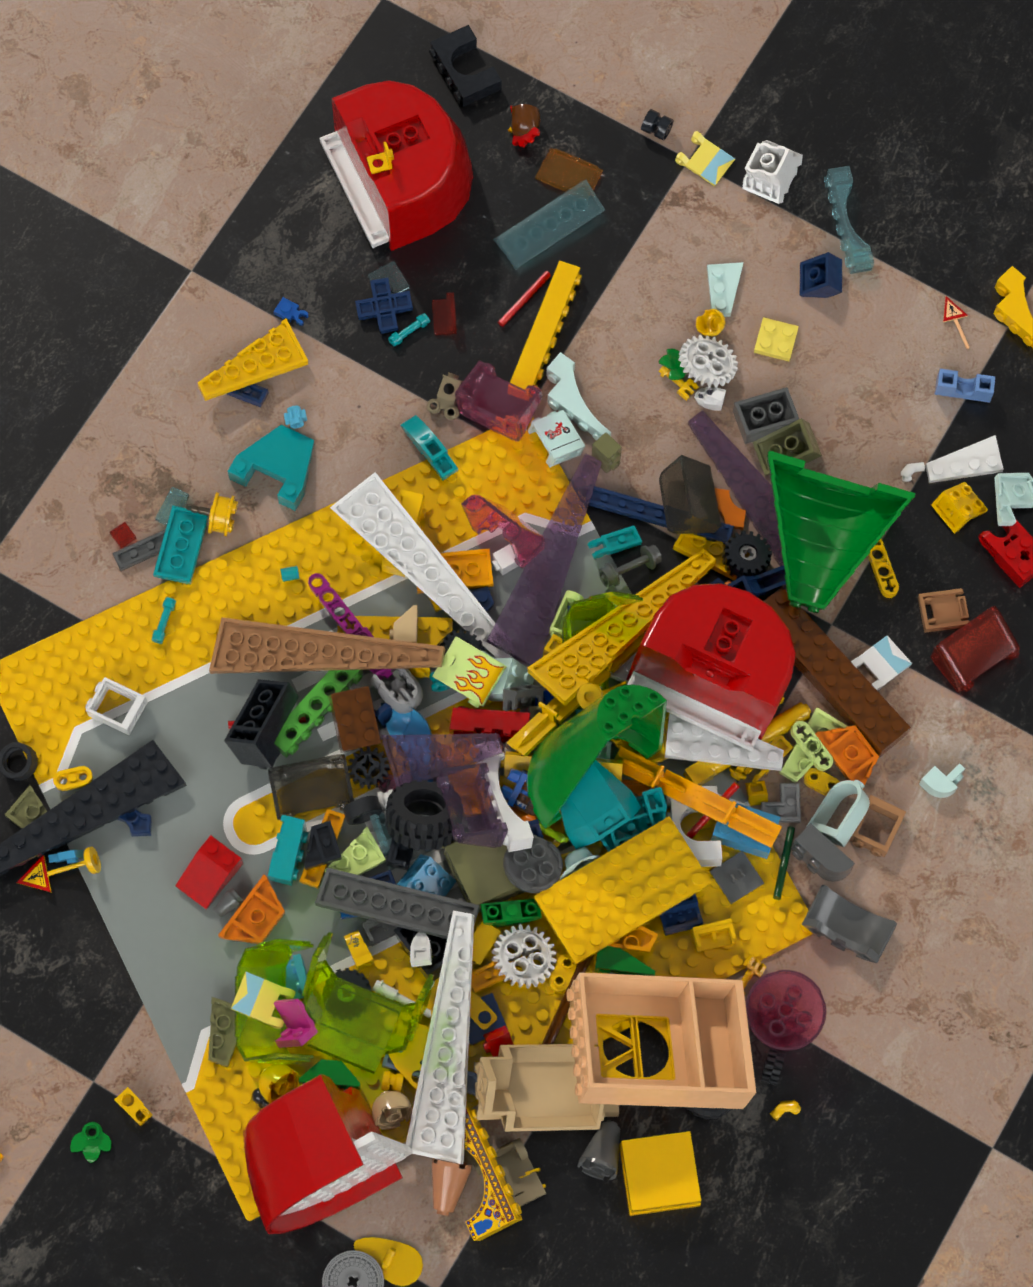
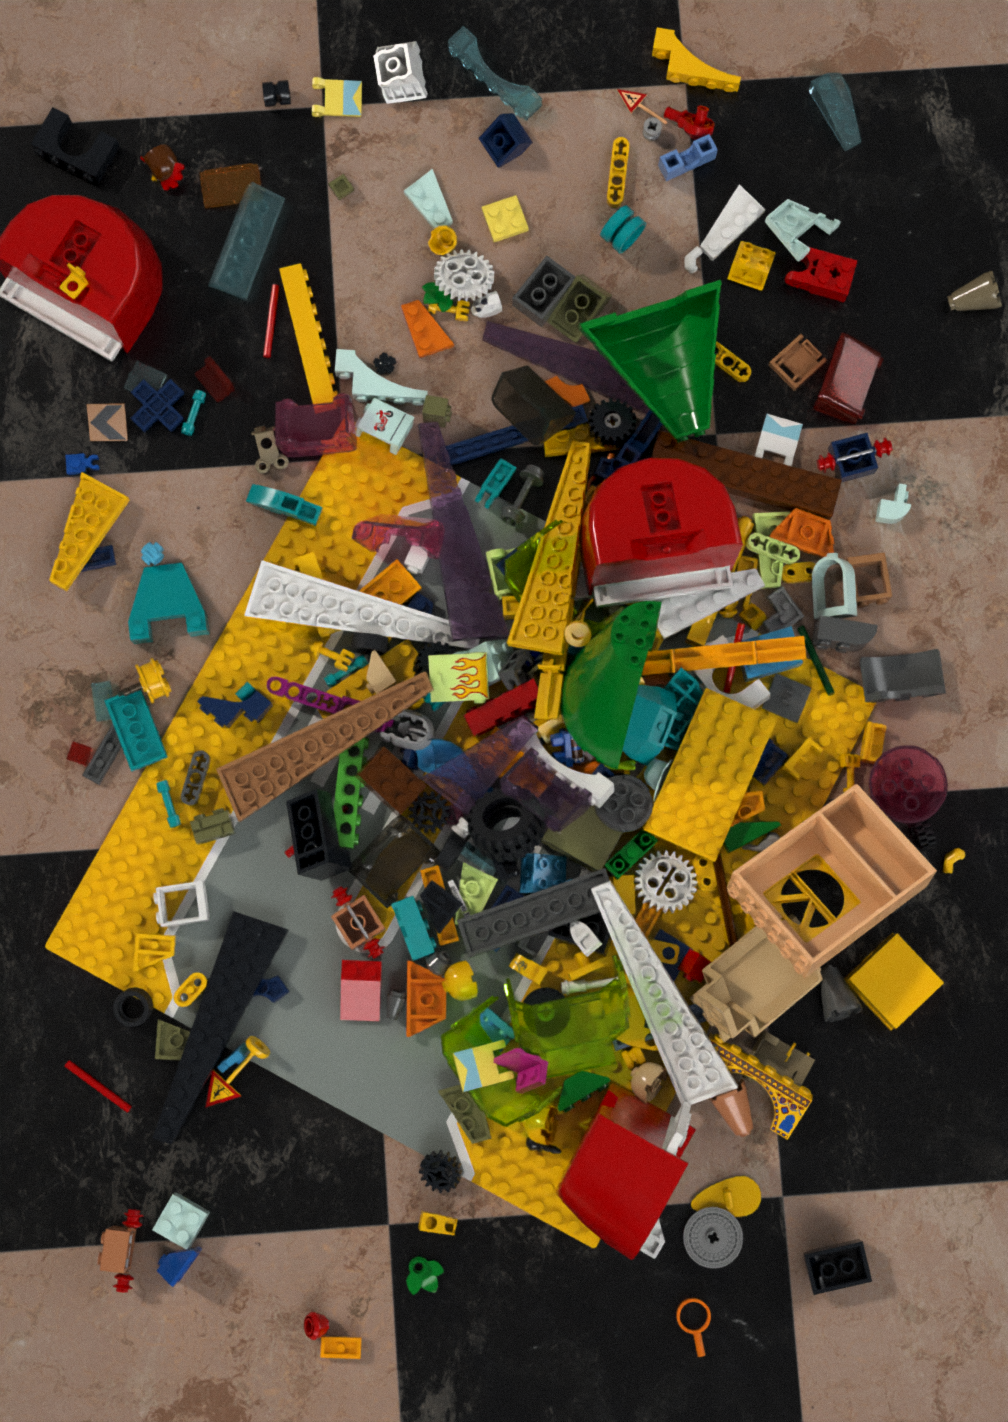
camera: 35 degrees left, 10 degrees up
(66, 726) = (152, 949): none -> yellow wing
(168, 1065) = (440, 1171): none -> black gear
(185, 661) = (212, 826): none -> olive brick
(199, 622) = (204, 765): none -> dark grey beam
(245, 814) = (358, 922): none -> nougat brick
(263, 580) = (228, 712): none -> dark blue arch
(288, 894) = (438, 962): none -> dark grey cone
(293, 918) = (459, 981): none -> yellow cylinder
(301, 1248) = (654, 1241): none -> white tile
(334, 292) = (107, 422): none -> piece
(342, 850) = (457, 895): none -> white sticker
(366, 610) = (331, 680): none -> teal bar
(374, 578) = (318, 648): none -> yellow hinge
(407, 981) = (586, 966): none -> yellow tile
(414, 595) = (368, 642): none -> black tyre
(593, 391) = (384, 364): none -> black plant
(645, 387) = (424, 330): none -> orange wing
(657, 230) = (341, 187): none -> olive plate
(789, 959) = (872, 742): none -> yellow hinge
(867, 407) = (623, 229): none -> teal wheel
(899, 362) = (617, 172): none -> yellow beam
(934, 716) = (853, 457): none -> dark blue brick
(948, 347) = (652, 133): none -> light grey wheel
(989, 362) = (695, 125): none -> red pin

